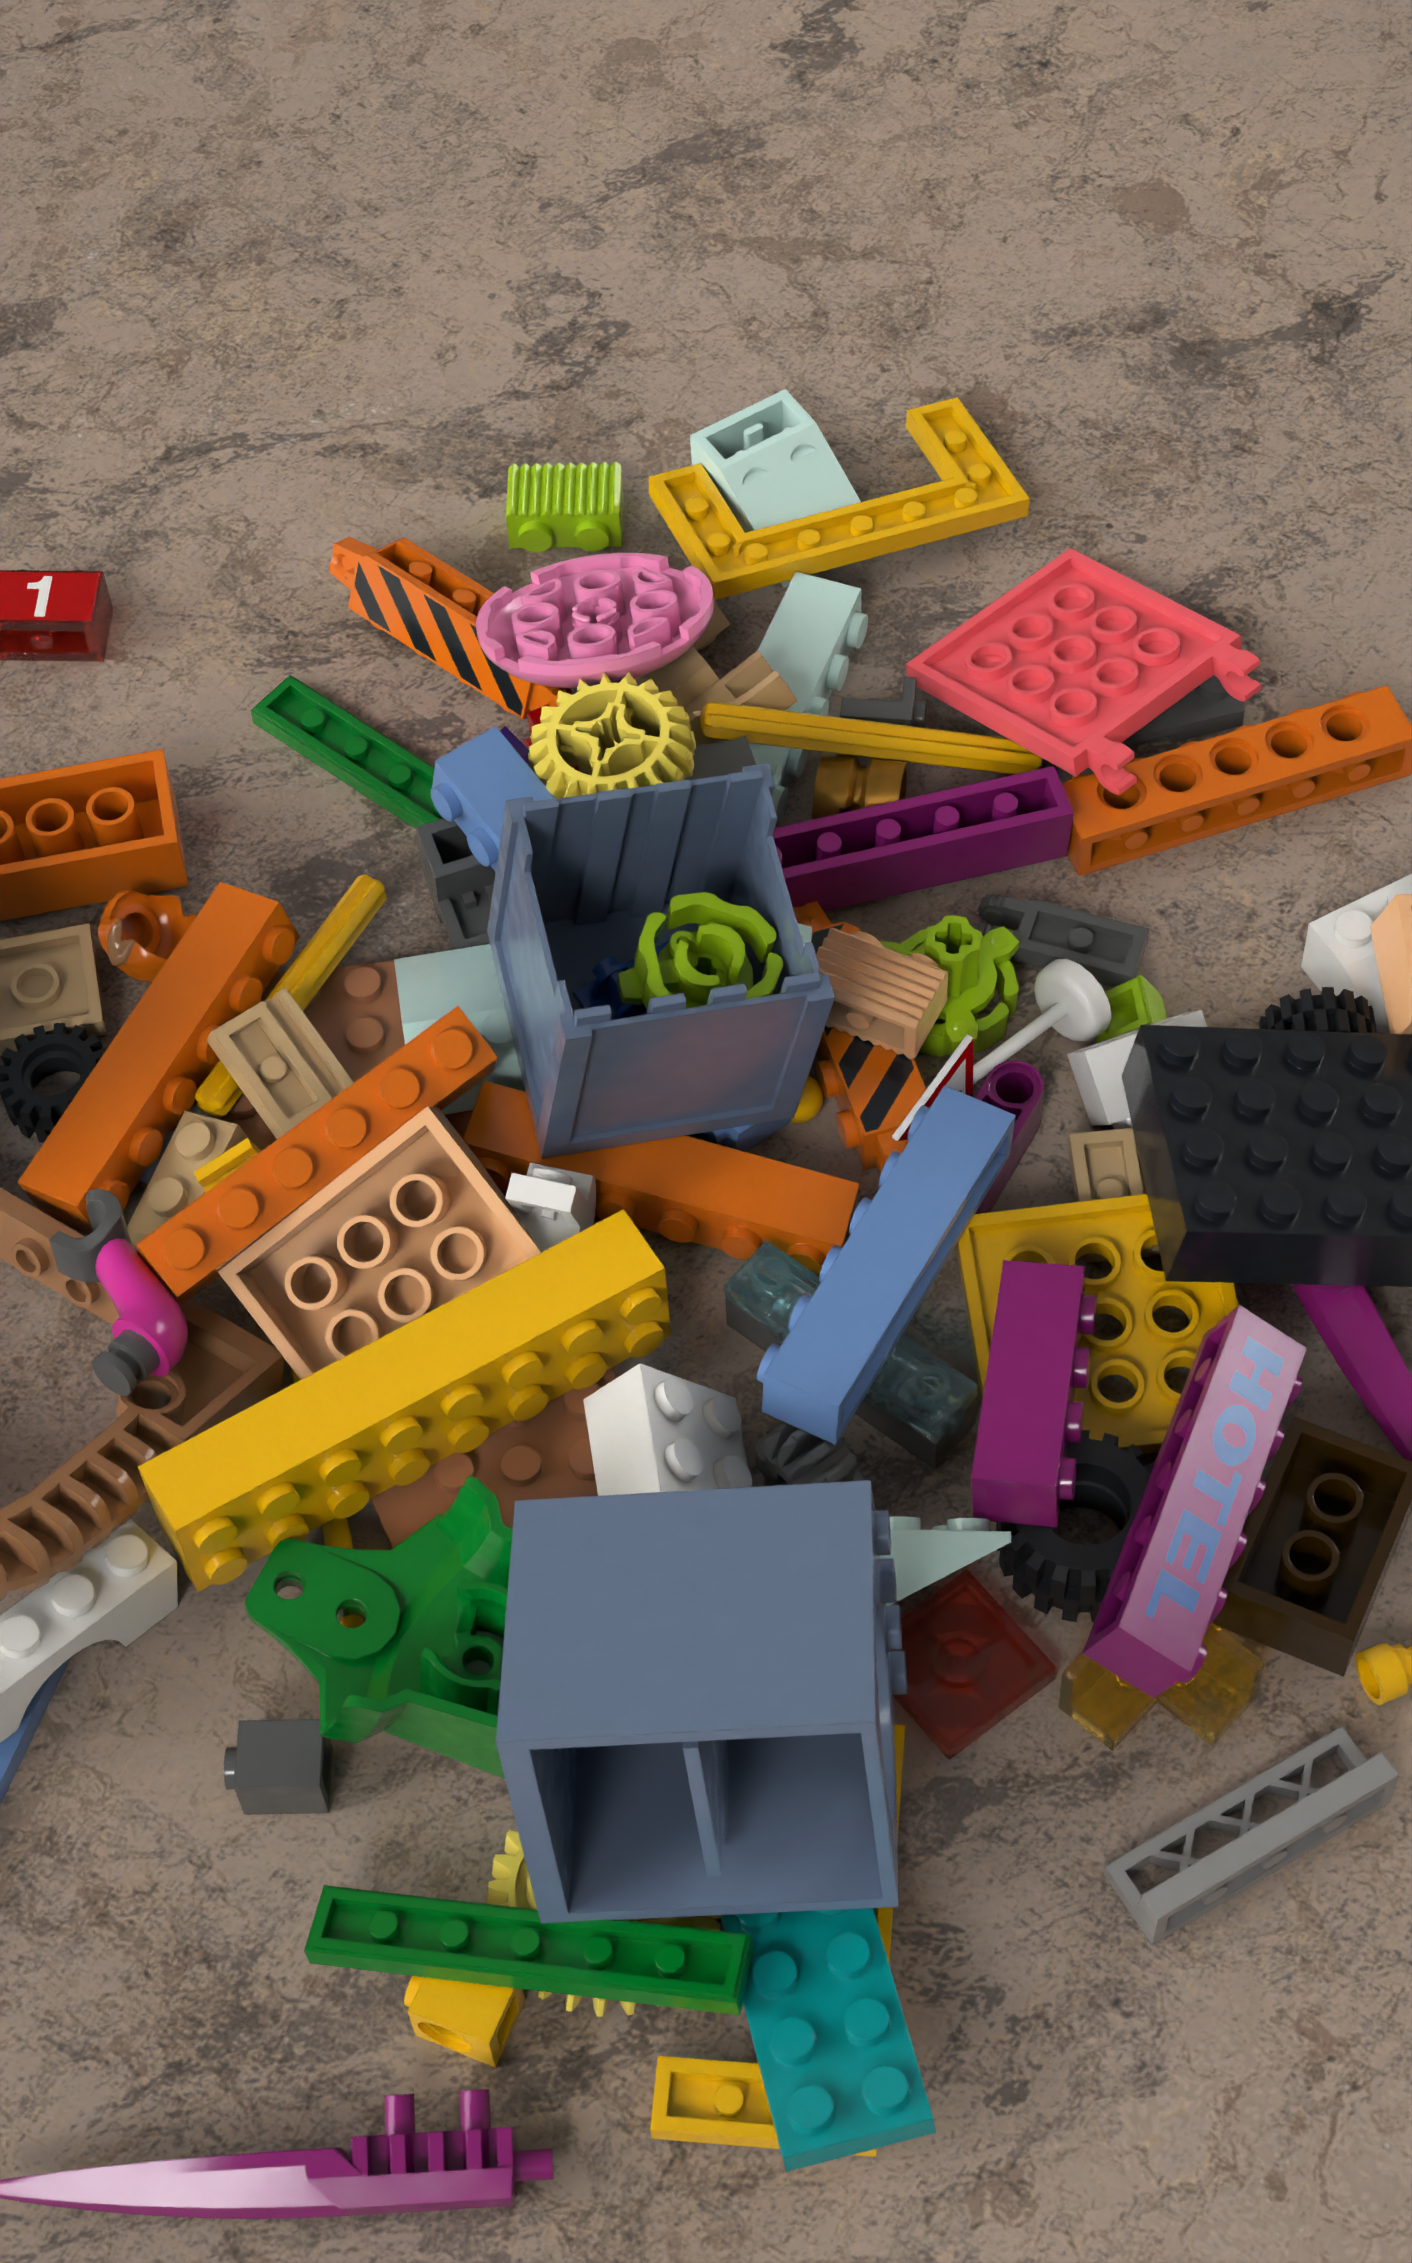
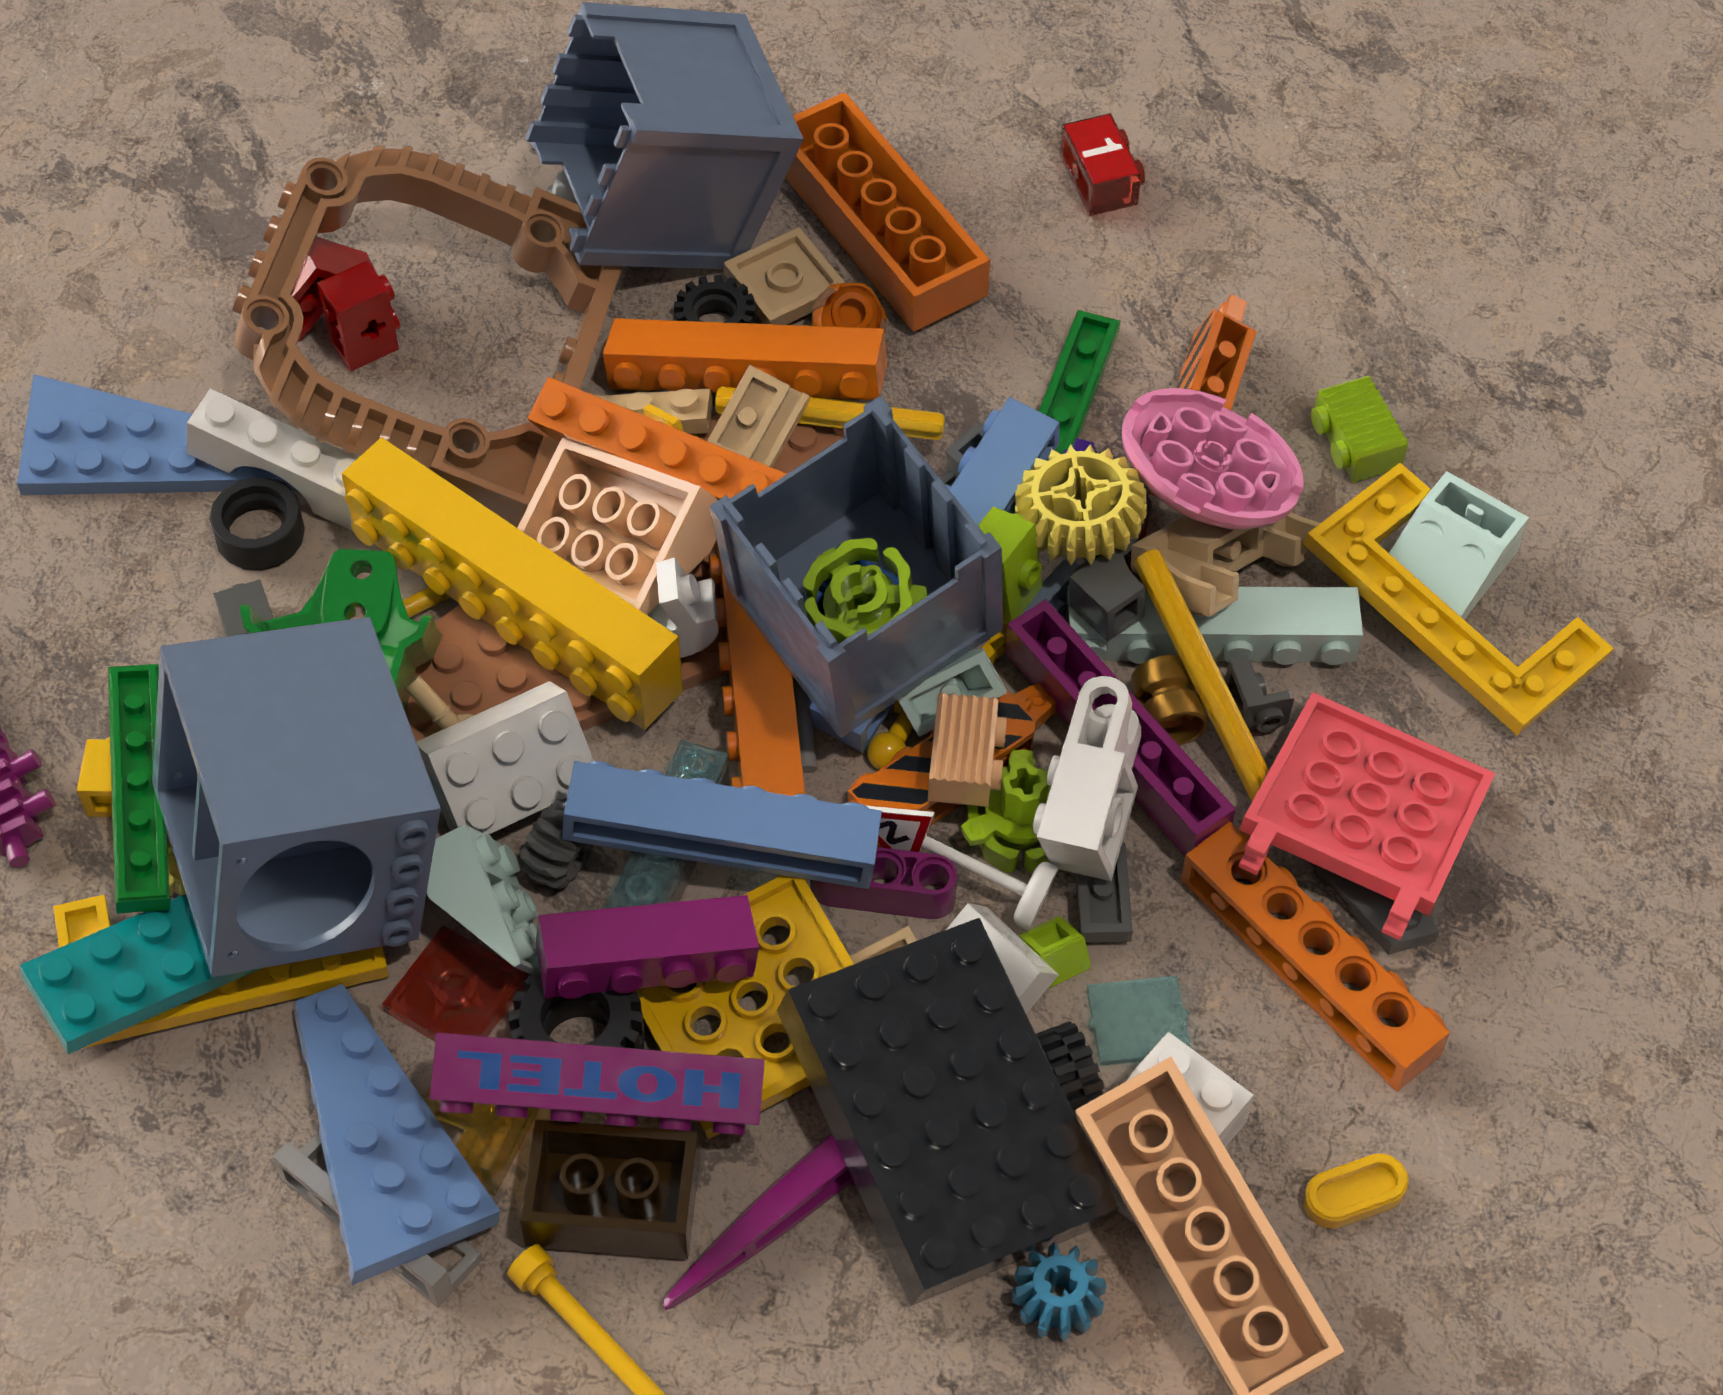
camera: 65 degrees right, 0 degrees up
(103, 1670) = (248, 496): none -> black tyre
(150, 1322) = (504, 414): piece -> none
(993, 866) = (1091, 784): none -> white brick
(1175, 1786) = (385, 1153): none -> medium blue wing
(1245, 968) = (1134, 1017): none -> clear light blue piece

